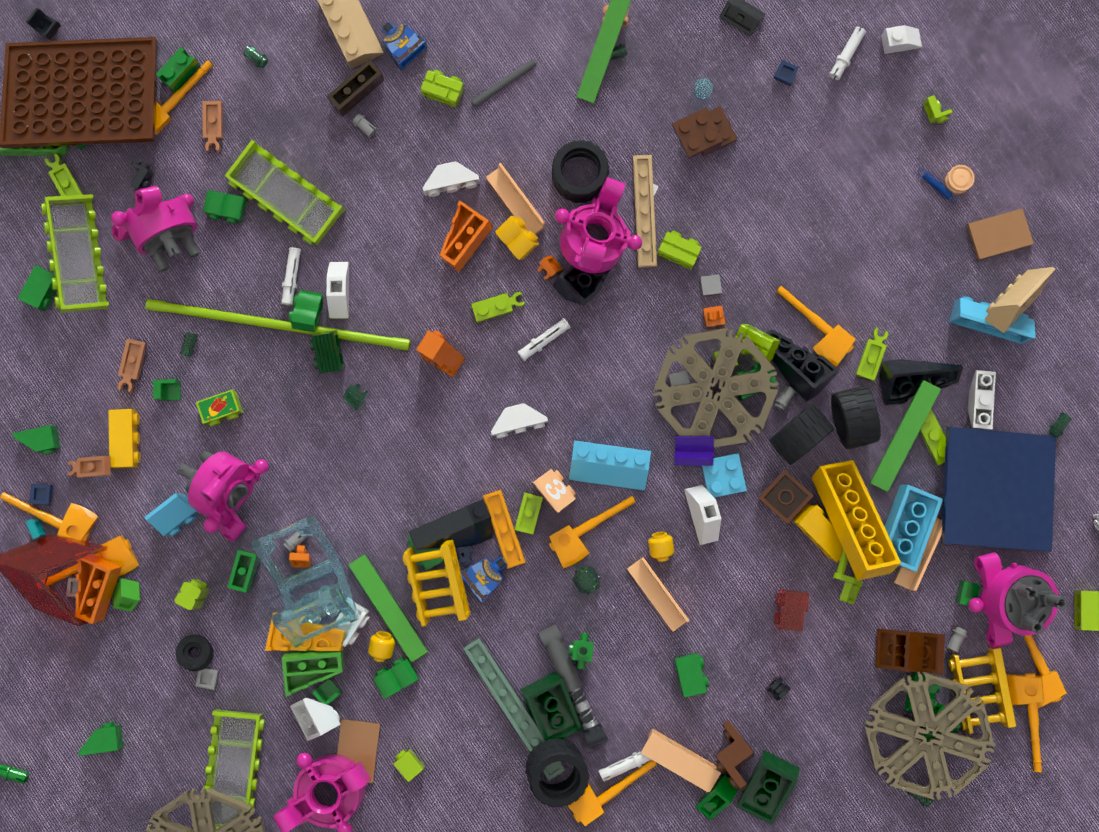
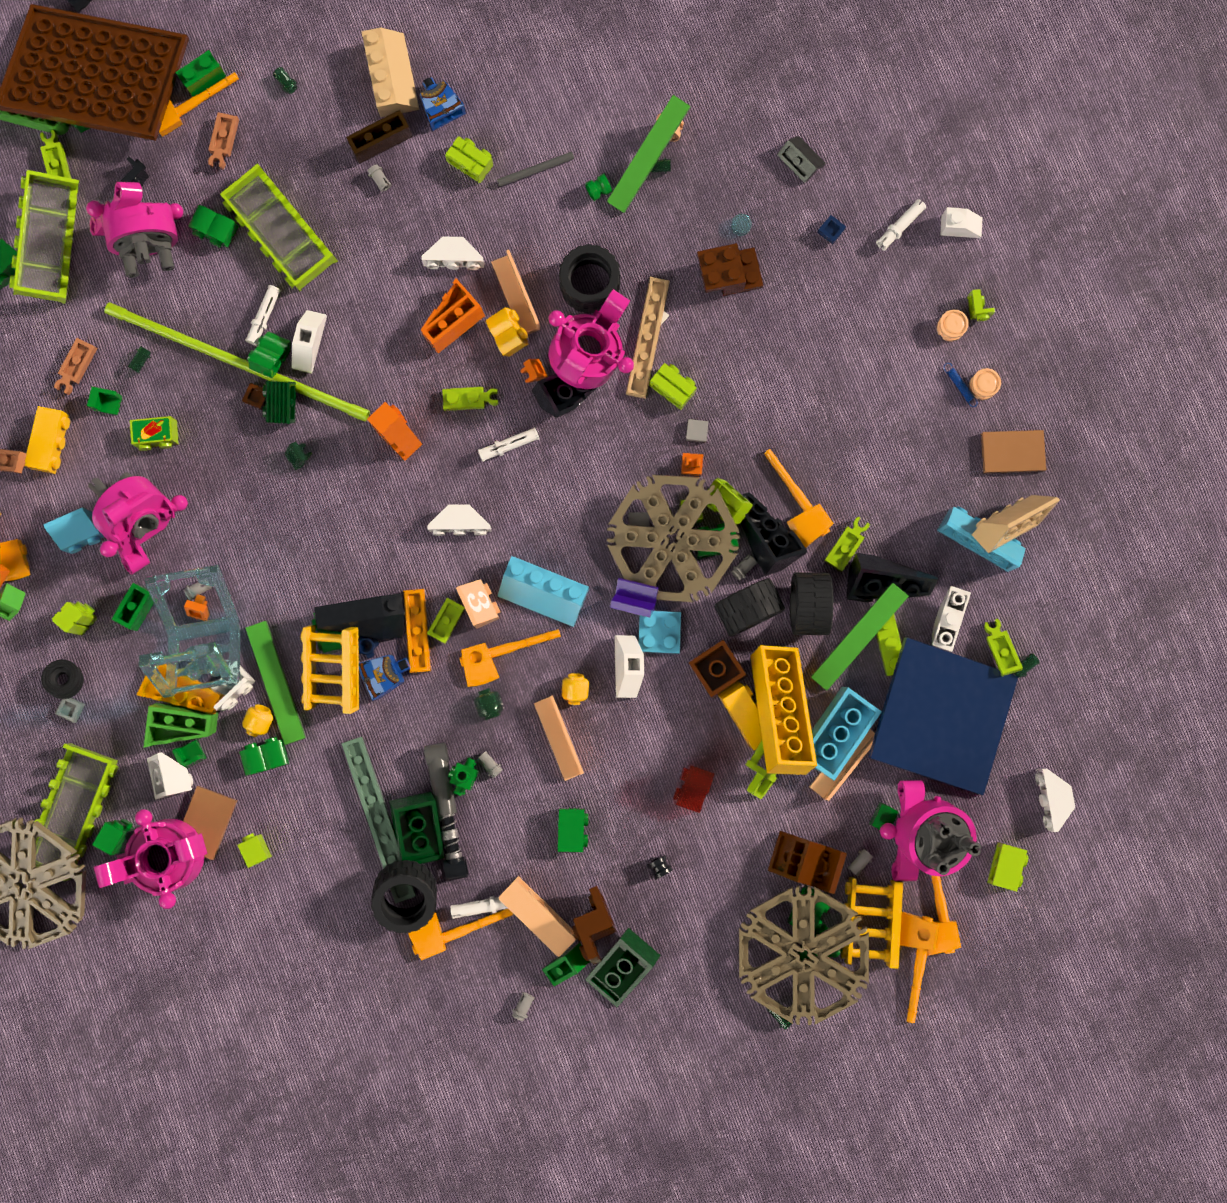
camera: 10 degrees right, 0 degrees up
(280, 784) = (114, 836): none -> green brick
(302, 352) = (254, 396): none -> reddish brown tile
(567, 84) = (600, 186): none -> green wheel
(601, 634) = (489, 765): none -> light grey pin
(916, 133) = (952, 325): none -> light nougat wheel
(1036, 415) = (1002, 649): none -> lime plate

